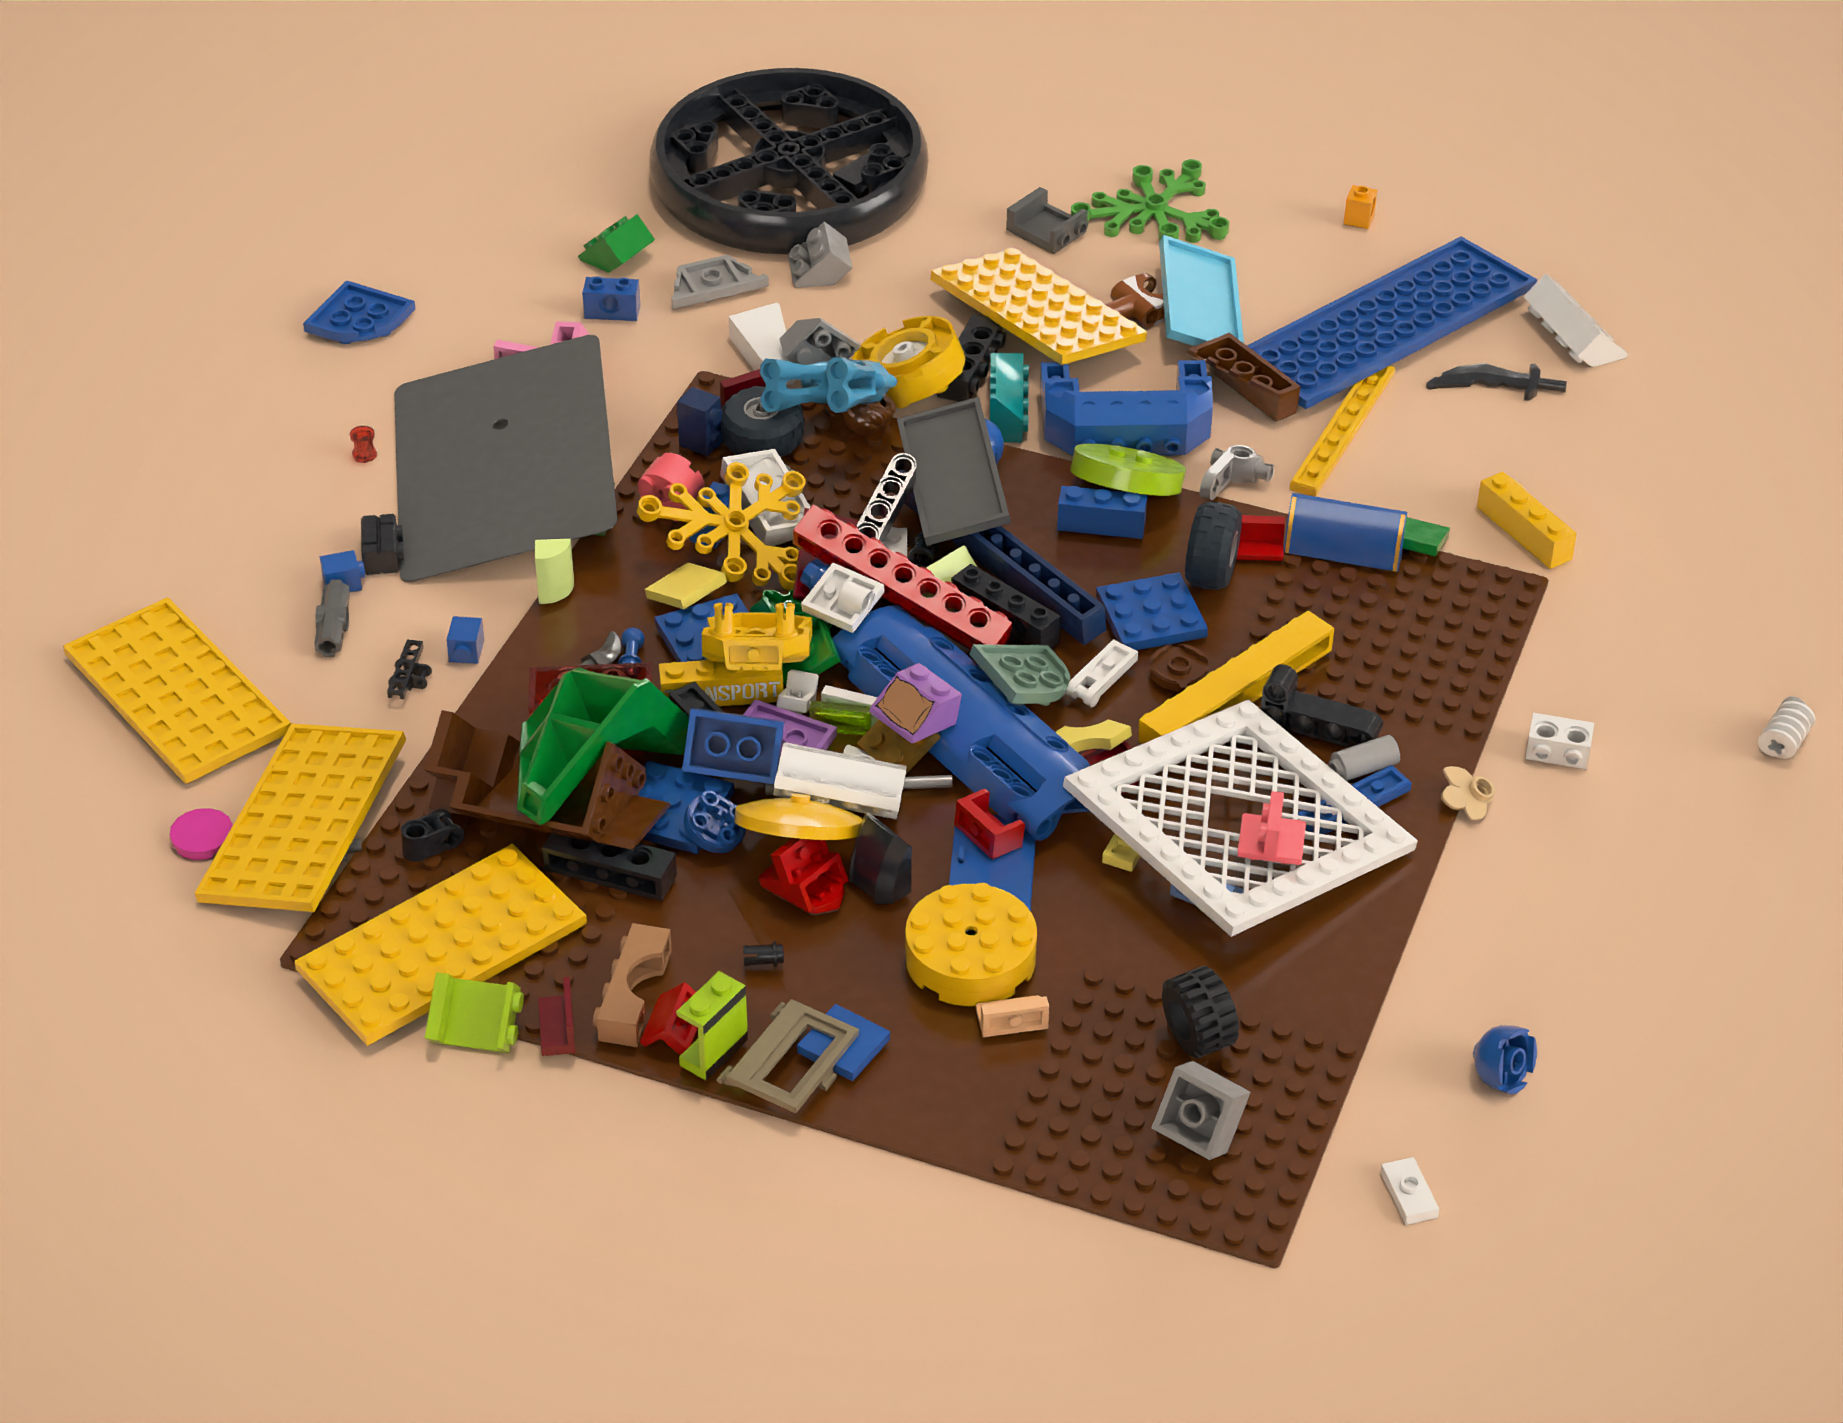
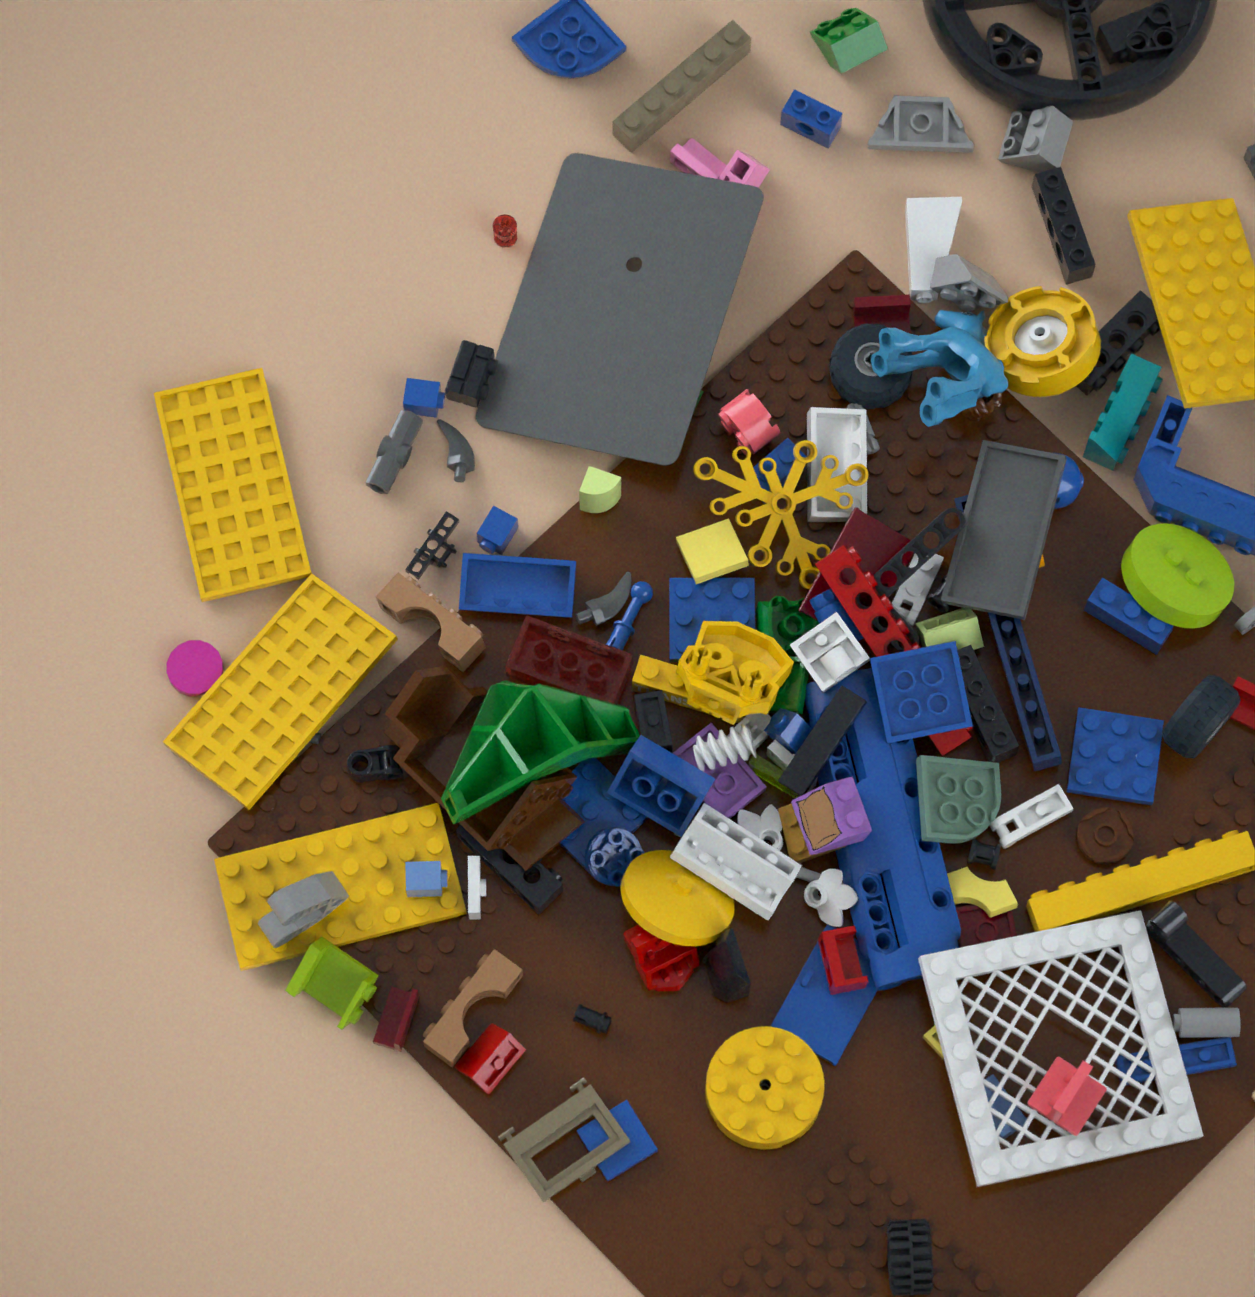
camera: 25 degrees right, 30 degrees up
(398, 605) = (460, 452): none -> dark grey bar
(413, 710) = (406, 601): none -> medium nougat arch
(422, 938) = (301, 906): none -> light grey connector
(479, 311) = (681, 86): none -> dark tan brick
(501, 663) = (517, 585): none -> blue slope
(530, 891) = (425, 878): none -> medium blue brick
(585, 892) = (476, 887): none -> white plate
(699, 421) = (812, 346): dark blue brick -> none
(721, 1021) = (510, 1094): lime panel -> none
(781, 695) = (724, 747): none -> white piece
(836, 671) = (788, 729): none -> blue brick
(872, 662) = (822, 741): none -> black tile
(874, 296) = (1063, 225): none -> black brick
(946, 594) = (921, 692): none -> blue plate
(951, 779) = (833, 898): none -> white plate
(1013, 1015) = (766, 1171): light nougat panel -> none
(1084, 705) = (984, 854): none -> black bush

